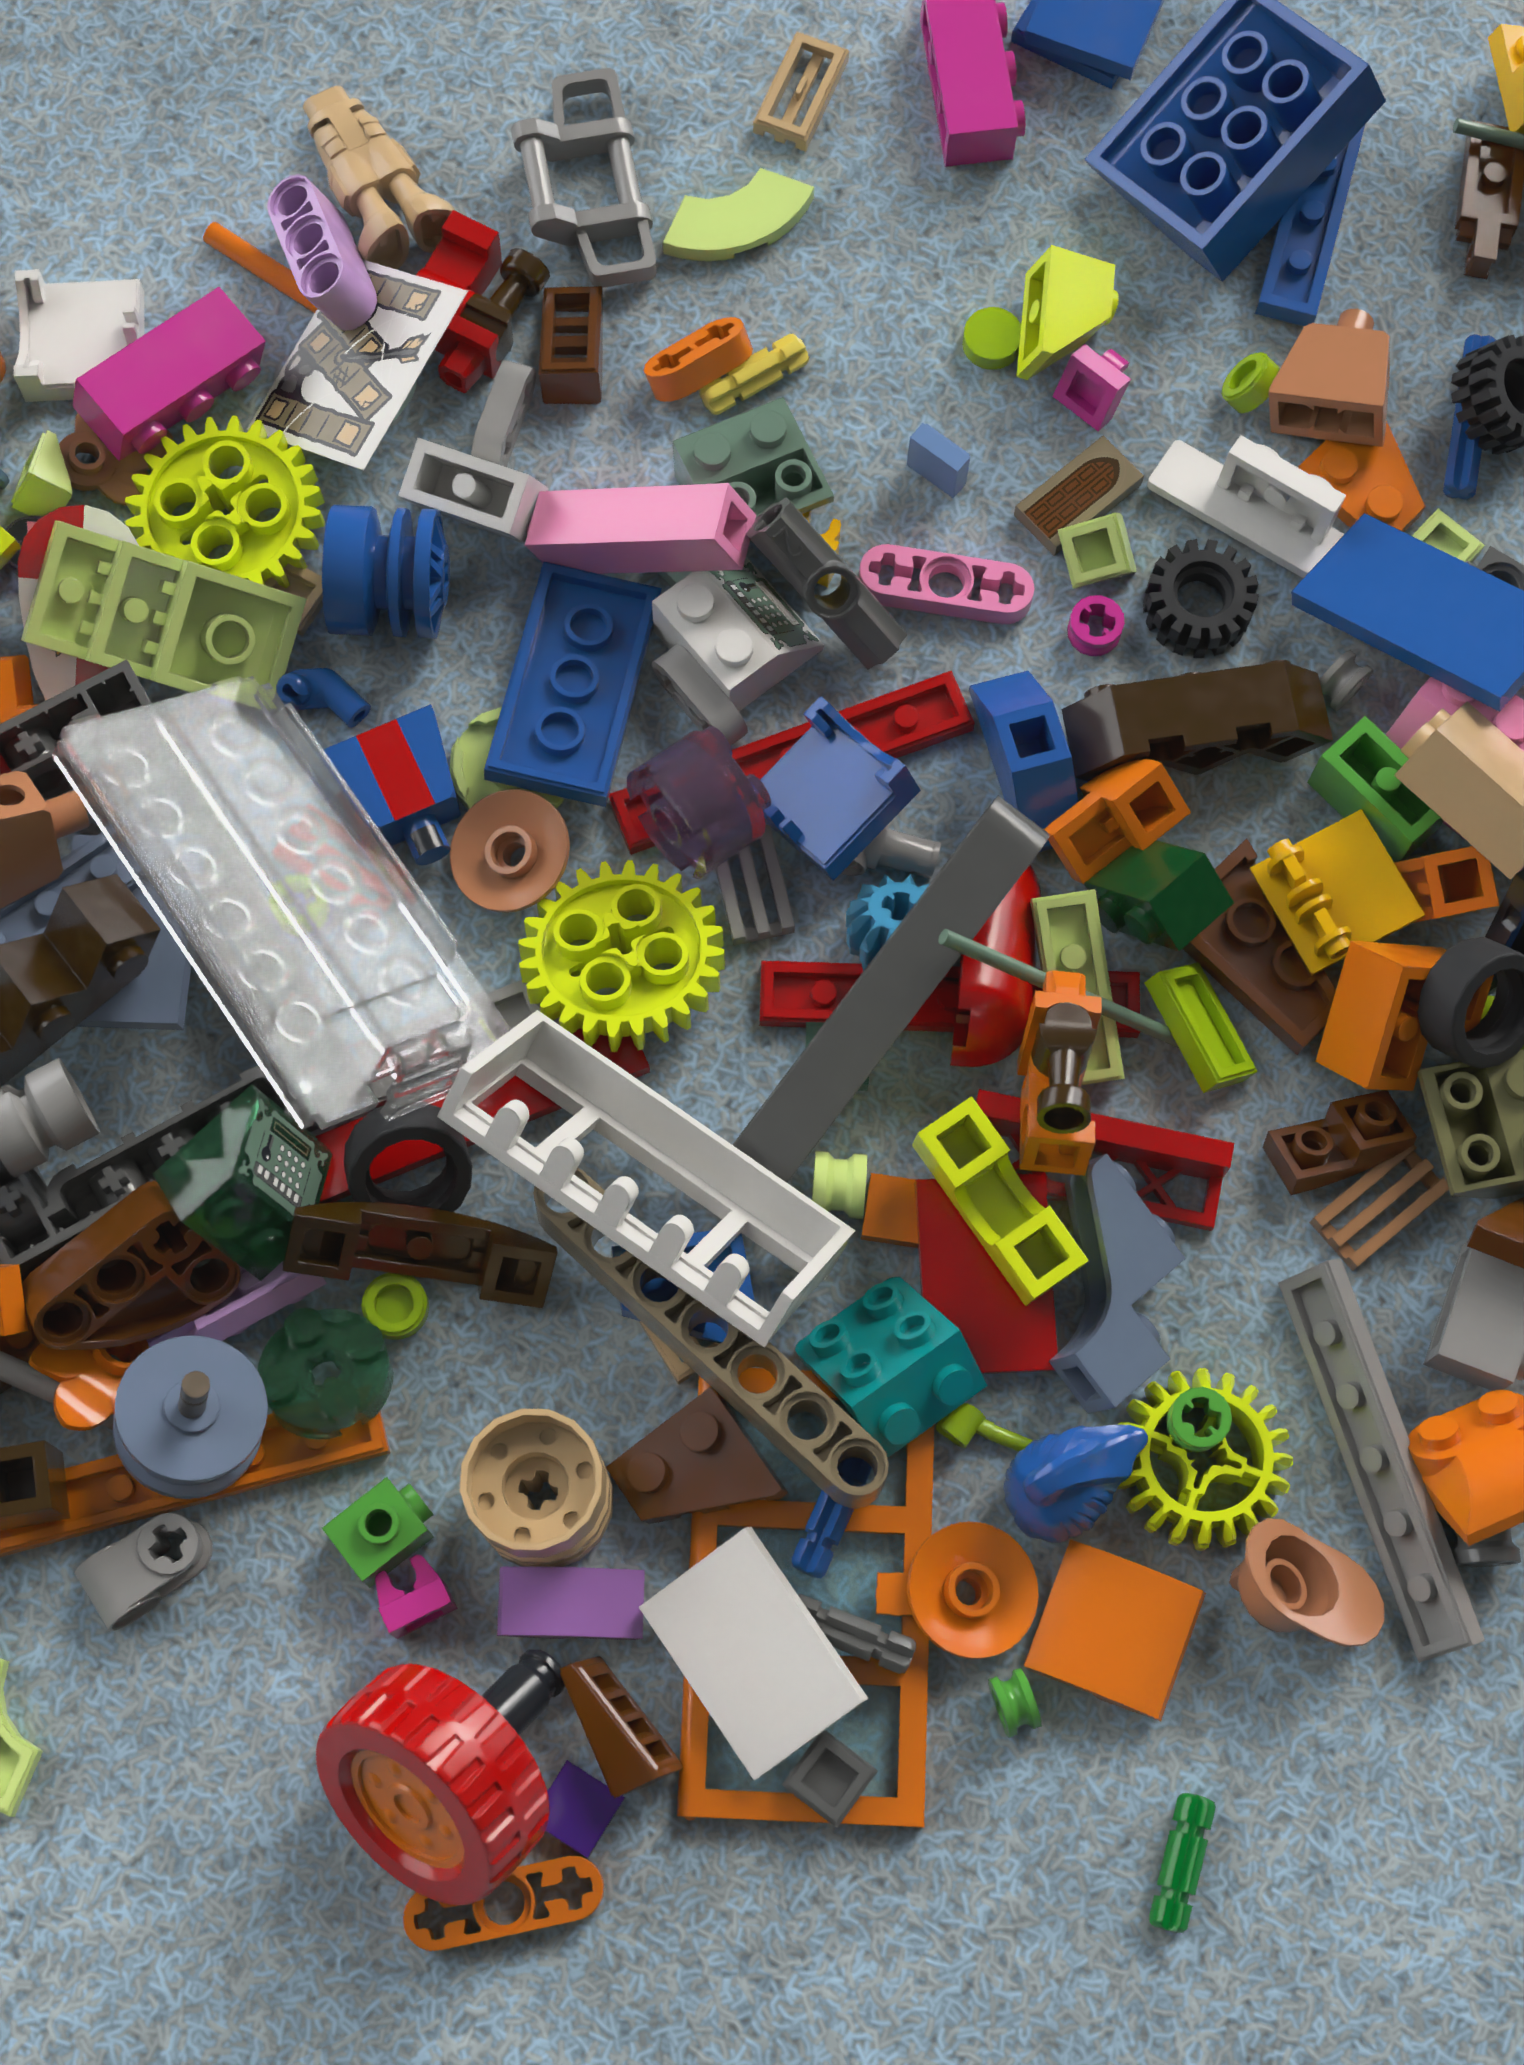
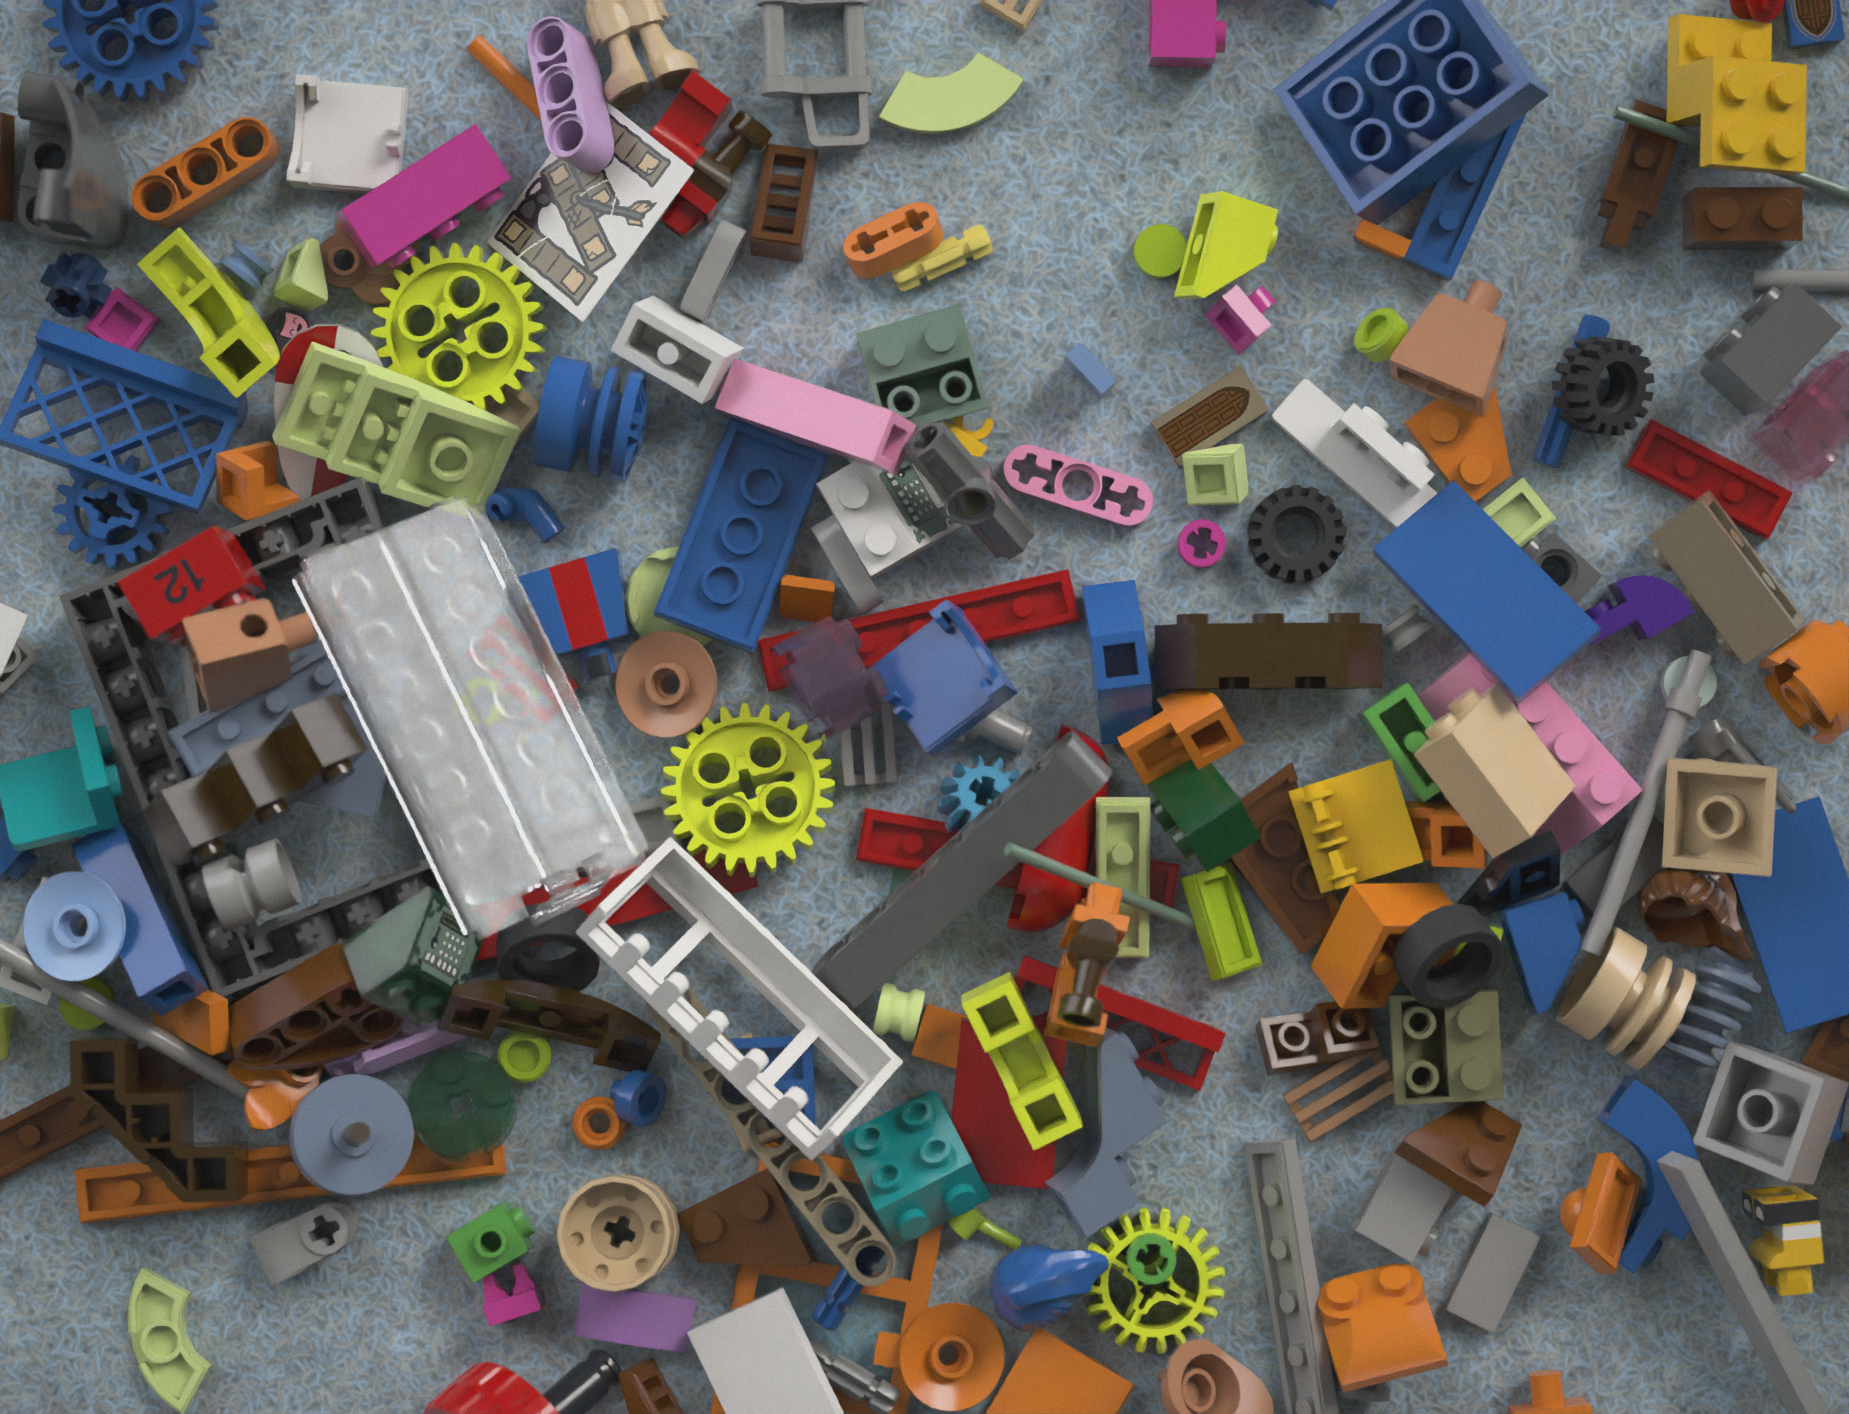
camera: 10 degrees right, 15 degrees up
(487, 1353) = (584, 1131): none -> orange plate
(540, 1331) = (639, 1097): none -> blue tile
(654, 730) = (806, 598): none -> orange slope
(1231, 288) = (1381, 240): none -> orange tile

